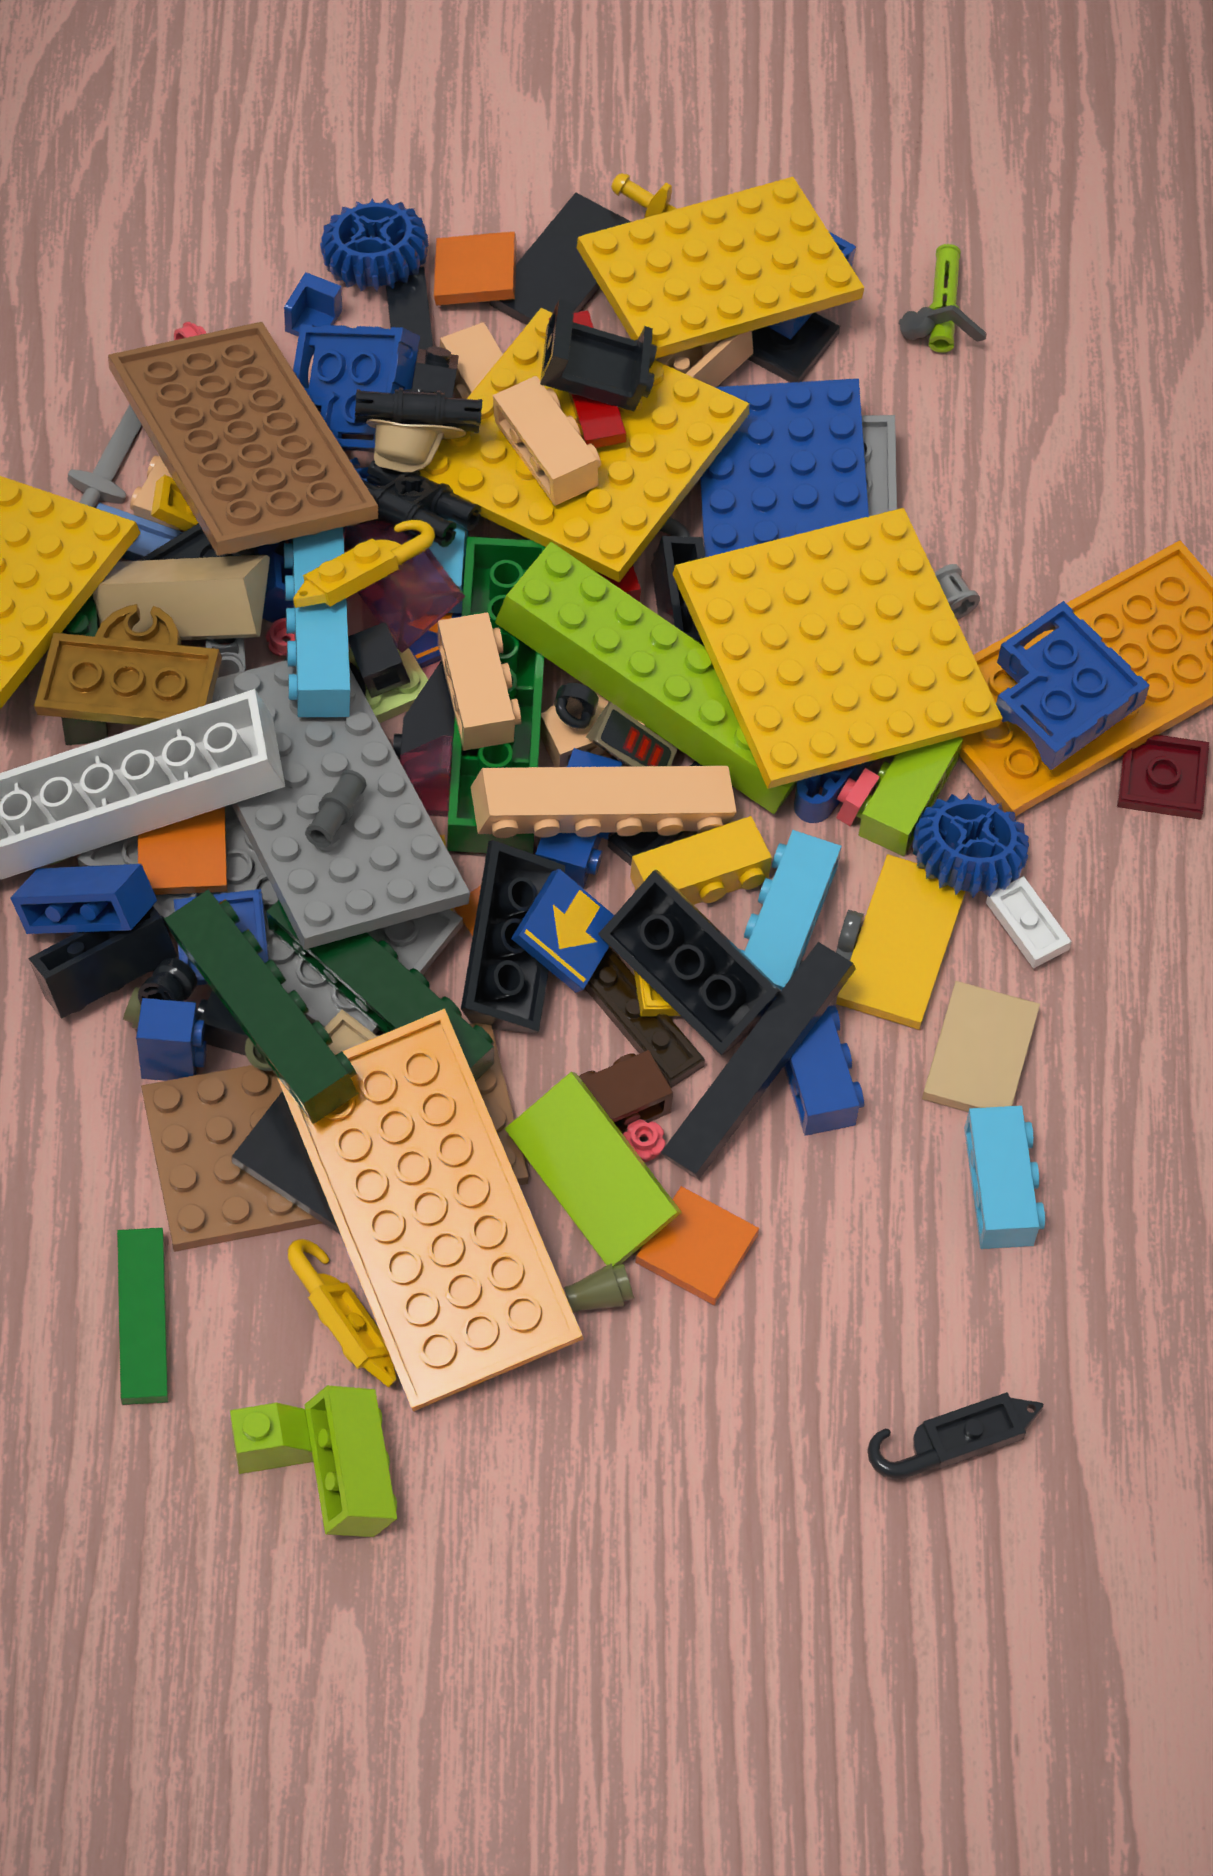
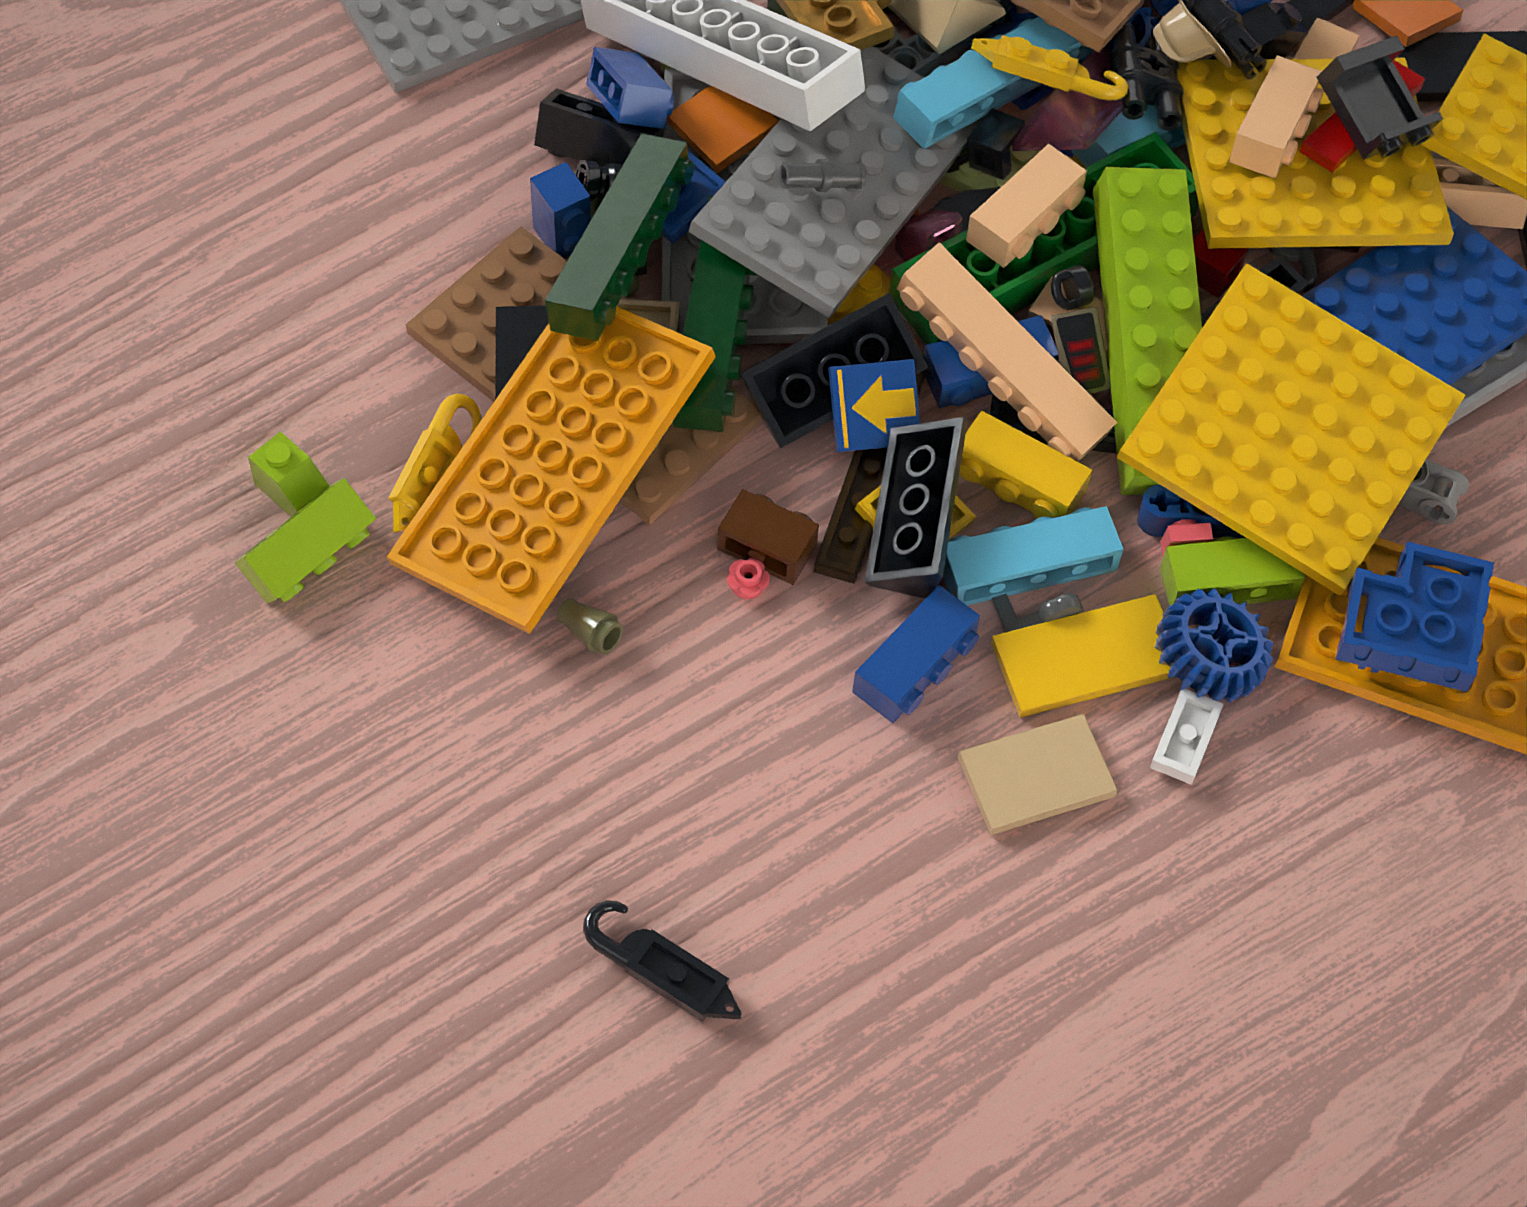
camera: 55 degrees right, 0 degrees up
(142, 1316) = (334, 342): green tile -> none
(593, 1170) = (682, 552): lime tile -> none
(699, 1246) = (687, 672): orange tile -> none
(758, 1060) = (877, 606): black tile -> none
(1003, 1177) = (928, 857): medium azure brick -> none
(1165, 777) = (1425, 761): dark red tile -> none

